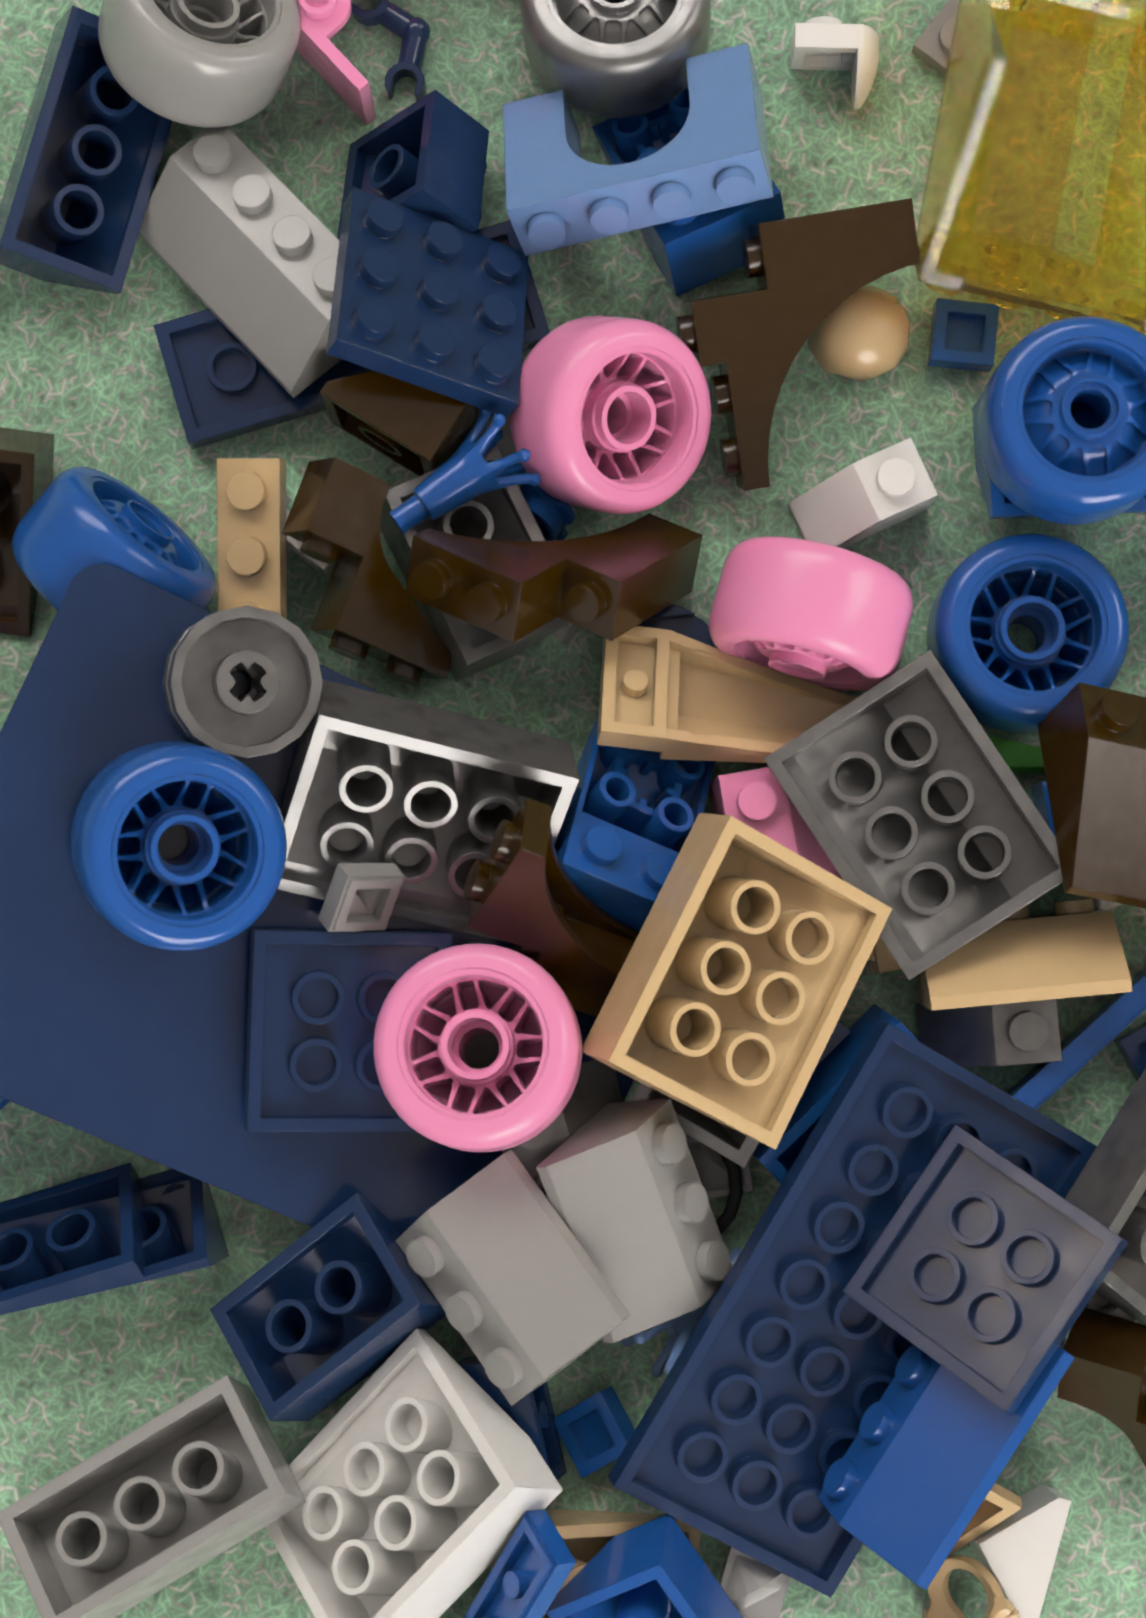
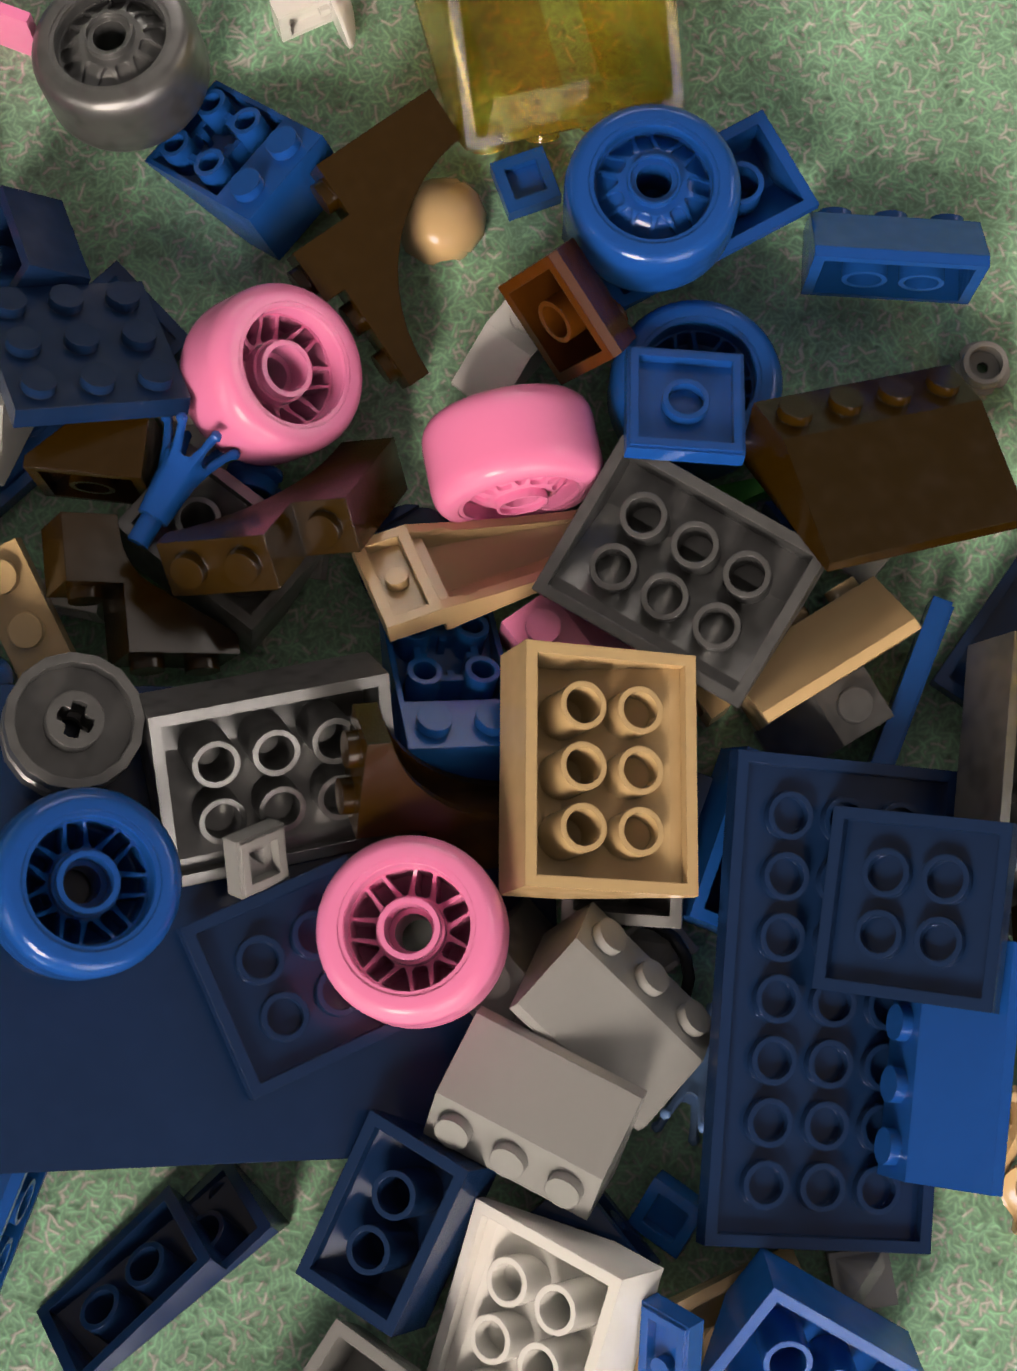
camera: 25 degrees left, 5 degrees down
(707, 167) = (252, 141): medium blue arch -> none
(939, 497) = (568, 312): none -> reddish brown slope
(1007, 650) = (684, 406): none -> blue tile

